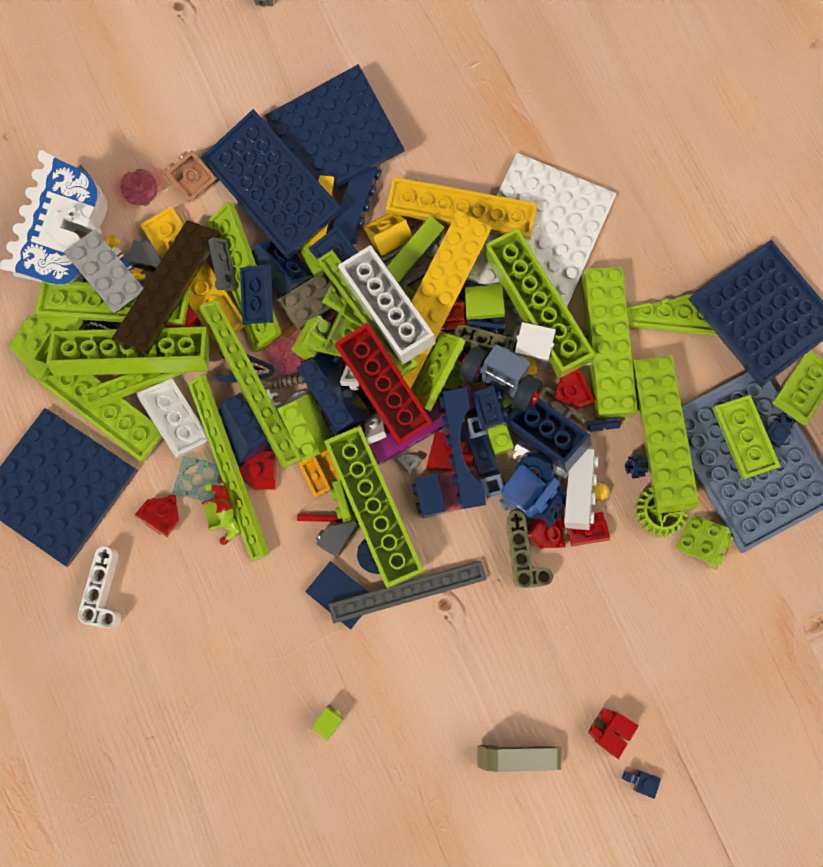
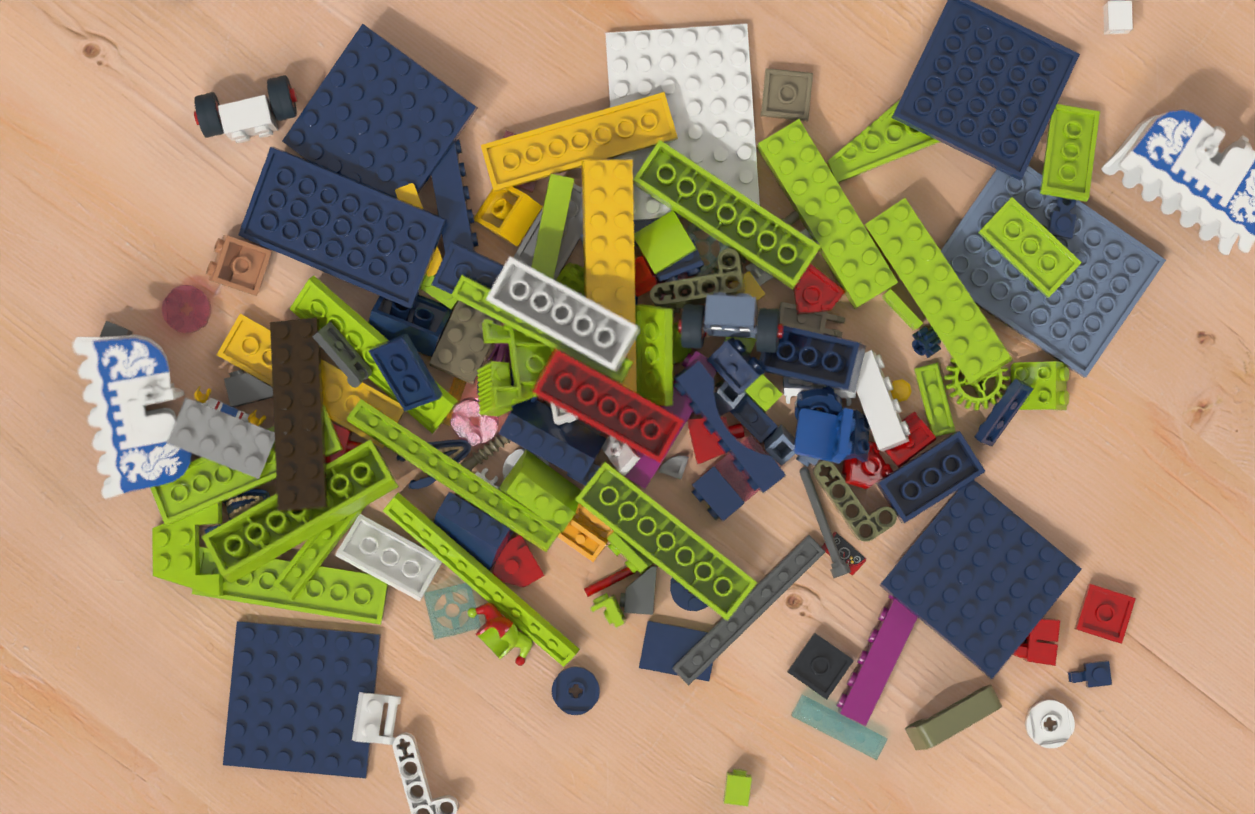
camera: 30 degrees left, 10 degrees up
(93, 522) = (369, 718): none -> white plate
(160, 514) = (436, 669): red plate -> none
(239, 585) = (585, 680): none -> dark blue plate
(252, 85) = (248, 116): none -> brick
(308, 538) = (613, 610): none -> lime bracket
(429, 717) = (839, 727): none -> clear light blue plate
(438, 662) = (820, 666): none -> black plate
(489, 678) = (877, 662): none -> magenta brick
(490, 595) = (838, 566): none -> dark grey piece
(499, 588) = (847, 553): none -> sticker
(535, 341) = (747, 266): white piece -> none
(592, 564) = (930, 477): none -> dark blue brick
(593, 660) = (980, 577): none -> dark blue plate
(597, 814) = (1060, 732): none -> white plate
(598, 425) = (872, 308): dark blue piece -> none
(620, 250) = (786, 94): none -> dark tan plate
(622, 511) = (934, 399): none -> lime tile
(630, 435) = (902, 310): none -> lime tile
(670, 545) = (1003, 412): none -> dark blue plate
(675, 739) = (1105, 613): none -> red plate

